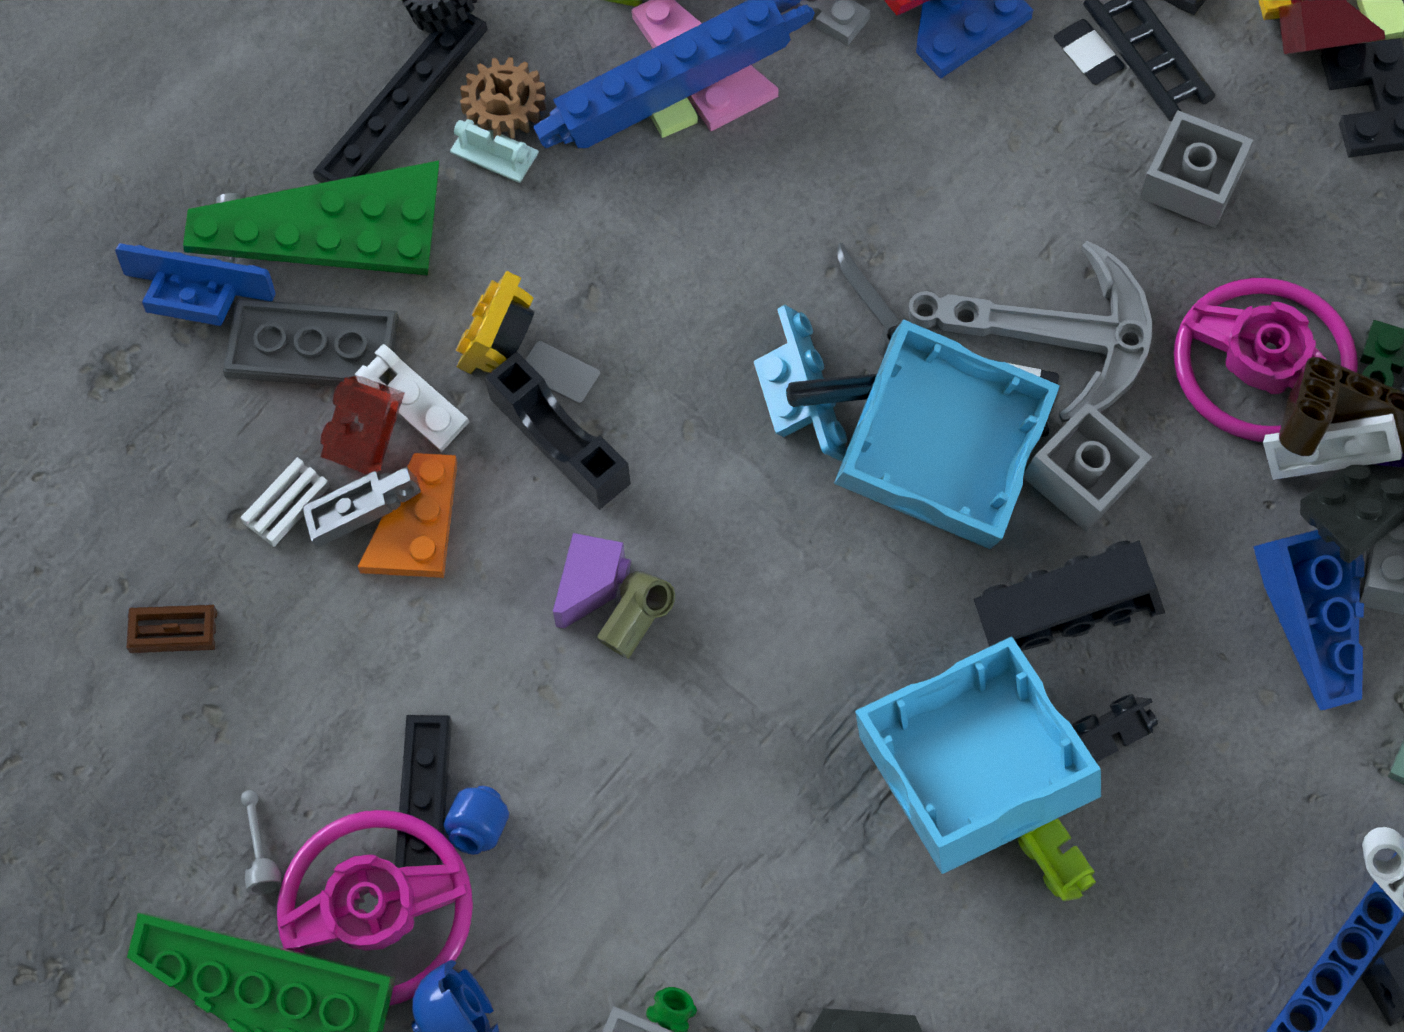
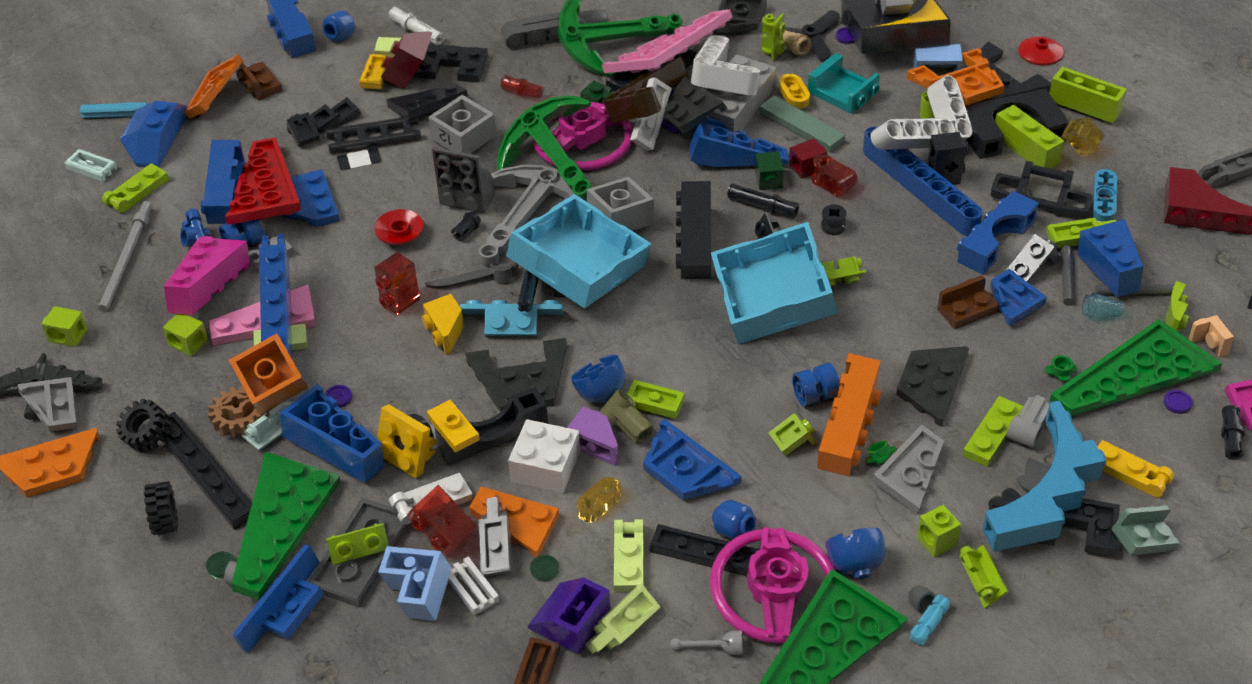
camera: 75 degrees left, 20 degrees down
(251, 182) = (218, 562): none -> clear green piece
(253, 644) = (572, 613): none -> dark purple slope
(260, 434) = (419, 577): none -> light blue brick
(266, 716) = (623, 619): none -> yellowish green hinge
(295, 319) = (357, 543): none -> lime hinge
(299, 77) = (160, 508): none -> black tyre
(342, 587) = (544, 568): none -> clear green piece
(387, 692) = (628, 555): none -> yellowish green plate
(482, 613) = (596, 497): none -> clear yellow beam
(489, 225) = (331, 434): none -> blue wedge
(512, 376) = (453, 425): none -> yellow plate
(525, 520) = (544, 456): none -> white brick
(534, 104) = (268, 374): none -> orange brick
(571, 722) = (686, 465): none -> blue wing
(580, 212) = (341, 394): none -> dark purple piece
(671, 451) = (511, 380): none -> pearl dark grey wing
(674, 867) = (792, 434): none -> lime bracket
(689, 549) = (600, 381): none -> blue cylinder
(689, 643) = (656, 399): none -> lime plate
(720, 945) = (850, 416): none -> orange wedge
(753, 297) = (444, 320): none -> yellow slope
(783, 878) = (812, 385): none -> blue wheel
(795, 202) = (397, 283): none -> clear red brick
(940, 149) = (398, 226): none -> red dish
(978, 256) = (464, 227): none -> black pin
(1051, 214) = (462, 180): none -> dark grey slope
(1189, 829) = (833, 219): none -> black wheel
(1195, 737) = (772, 203): none -> black pin
(1225, 270) = (534, 124): none -> green piece
(1254, 96) = (425, 101): none -> black wing
(1277, 682) = (769, 170): none -> dark green brick
(1304, 799) = (833, 178): none -> clear red piece
(1337, 740) = (802, 157): none -> dark red brick
(1348, 225) = (521, 87): none -> clear red axle

